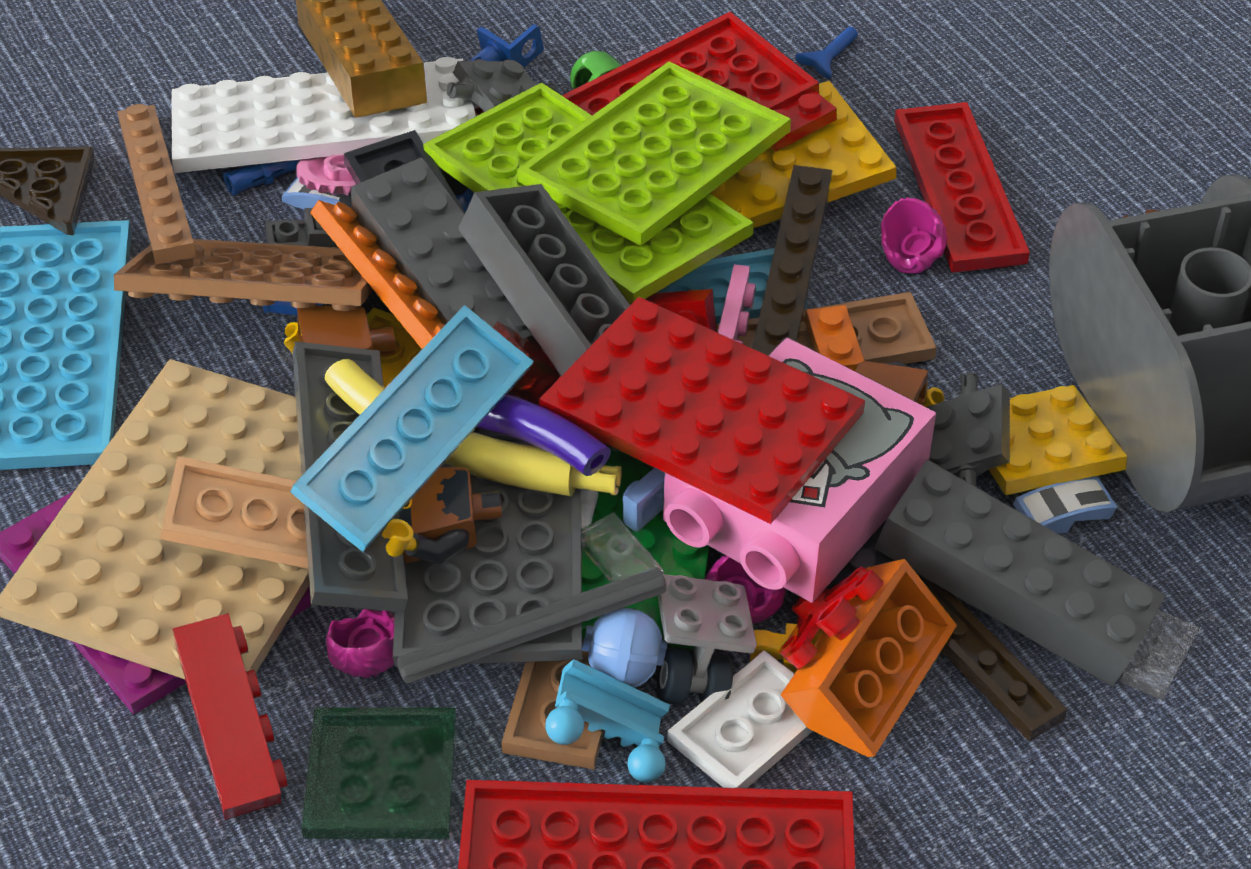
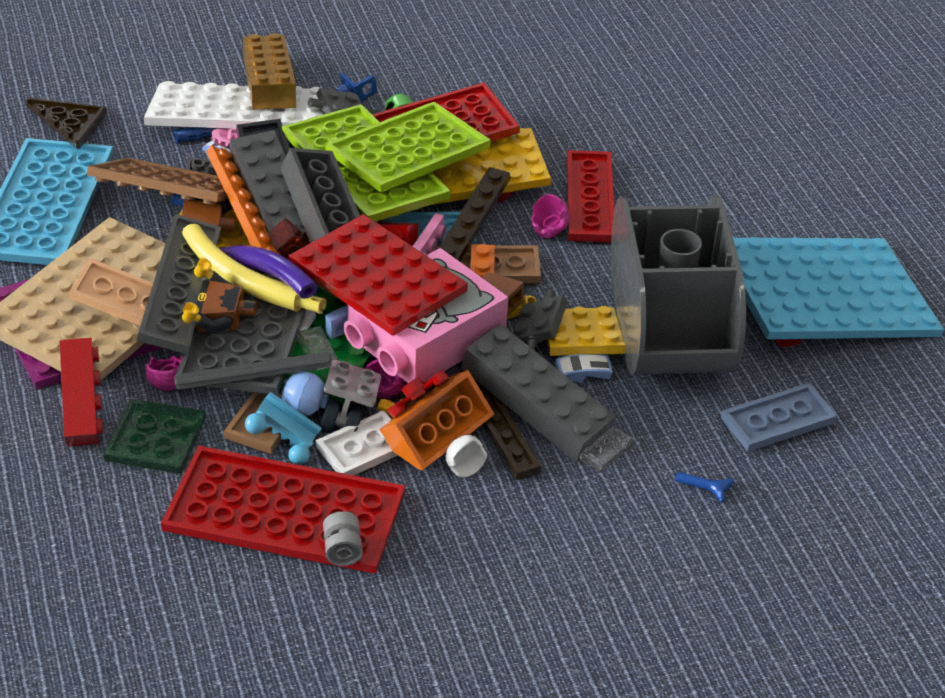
camera: 10 degrees right, 5 degrees down
(156, 185) = (131, 128): medium nougat plate -> none
(411, 428) = (213, 257): medium azure plate -> none
(807, 116) = (504, 144): red plate -> none
(822, 59) = (537, 118): blue piece -> none
(935, 714) = (465, 455): none -> white hair

